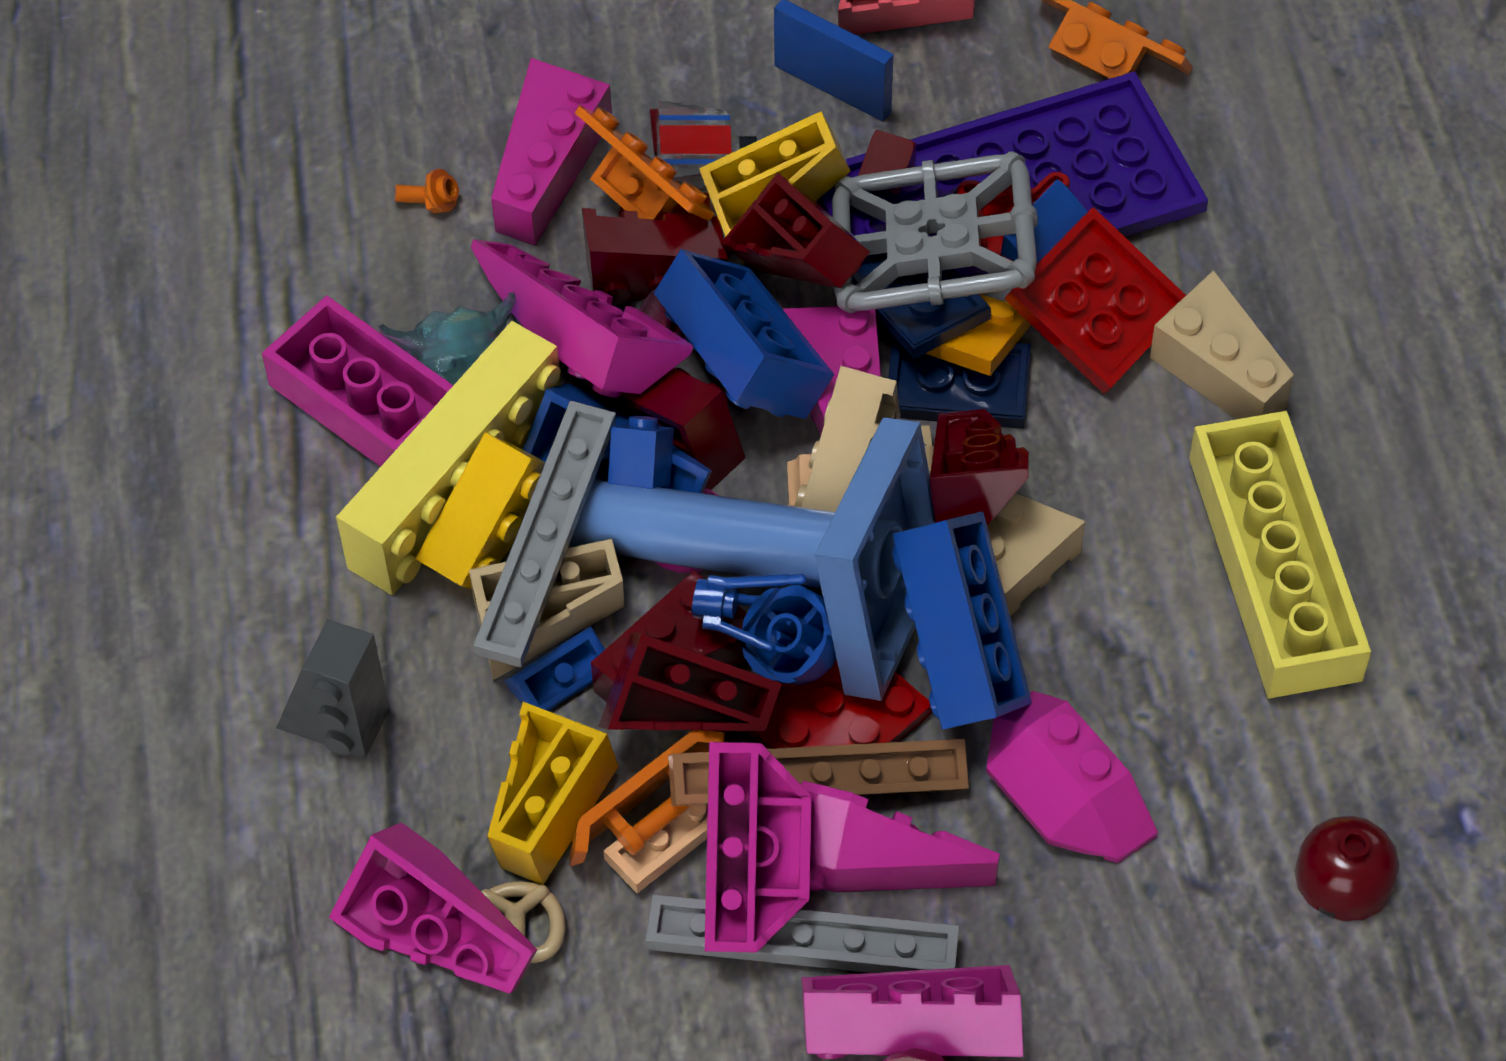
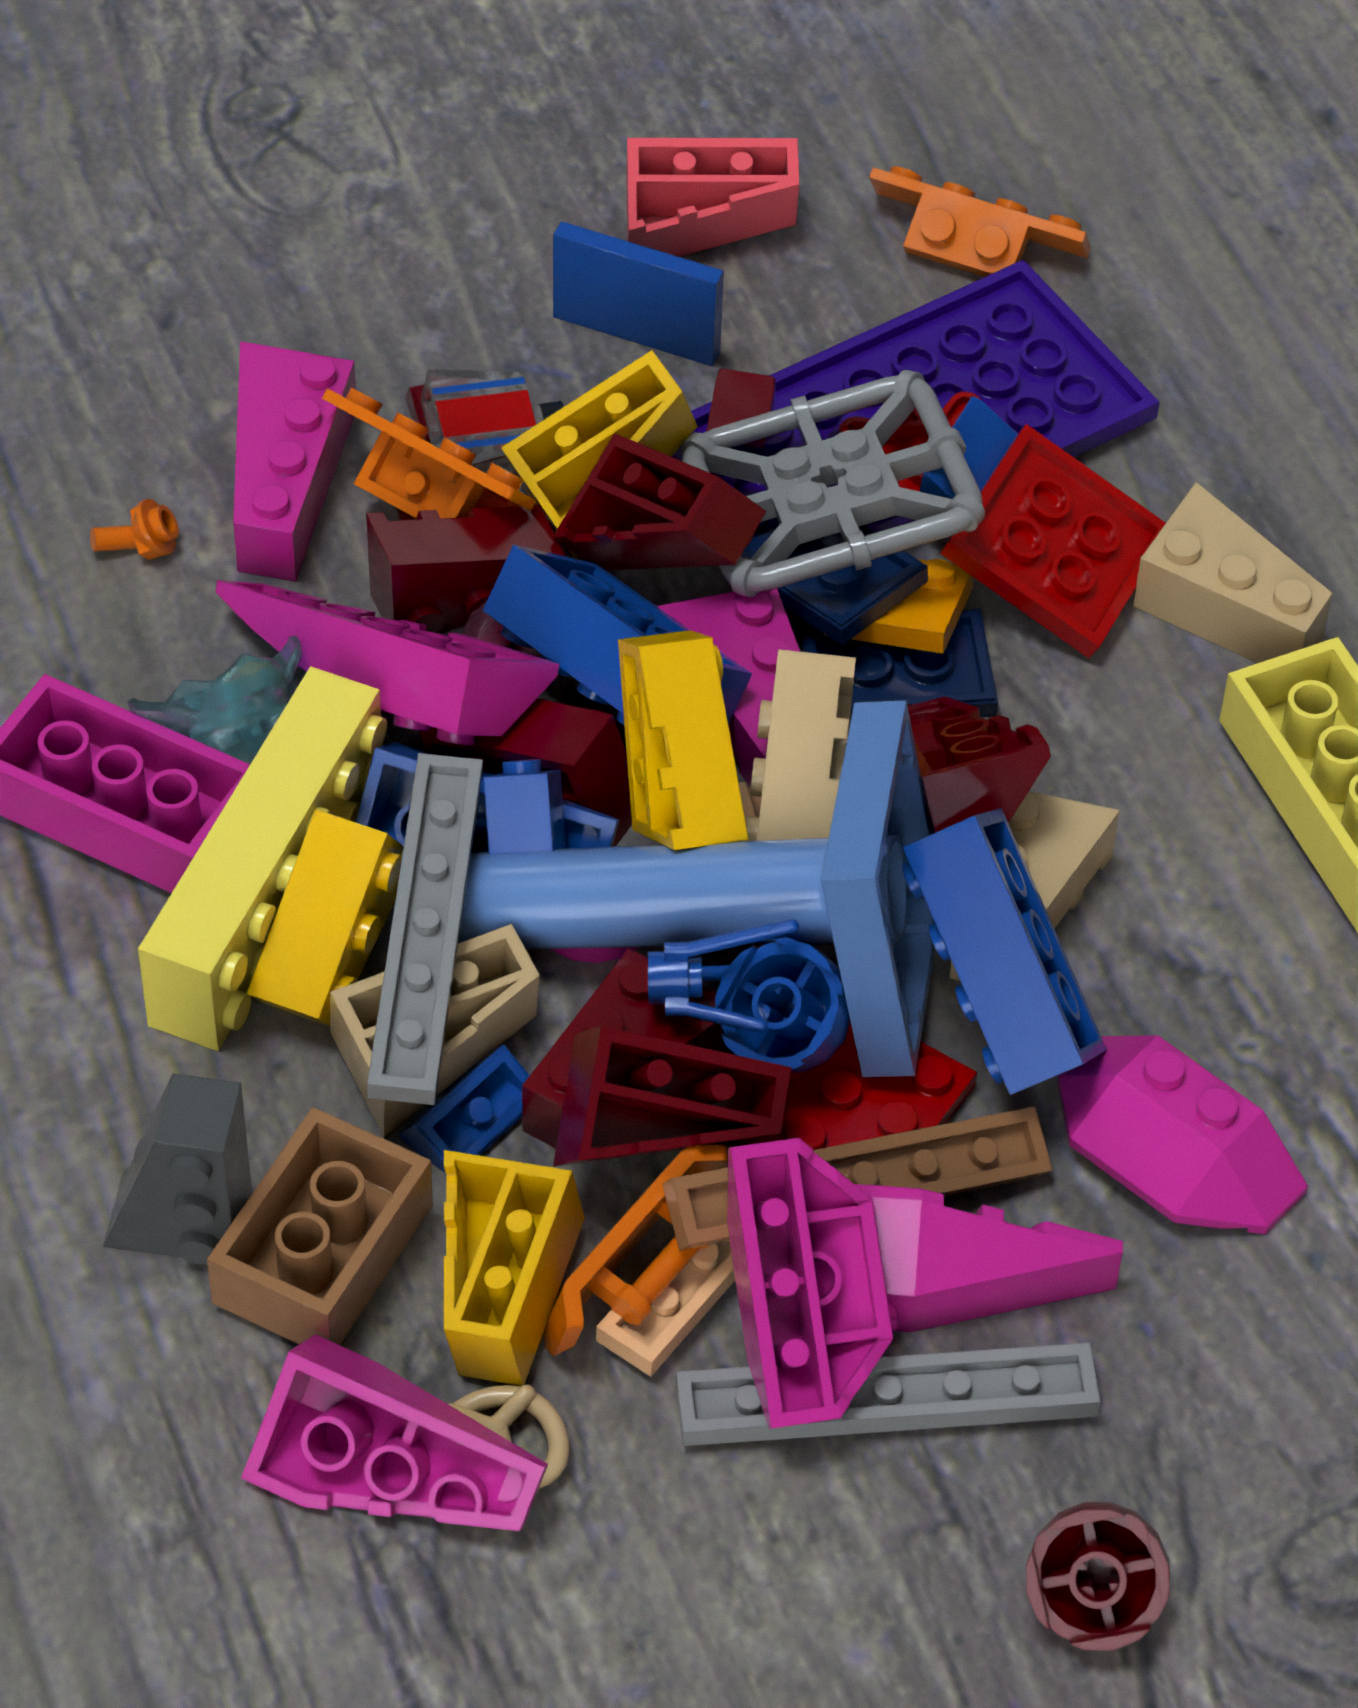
camera: 15 degrees left, 5 degrees down
(424, 745) = (320, 1230): none -> medium nougat brick
(758, 422) = (679, 741): none -> yellow wedge
(929, 1010) = (1038, 1463): dark pink wedge -> none

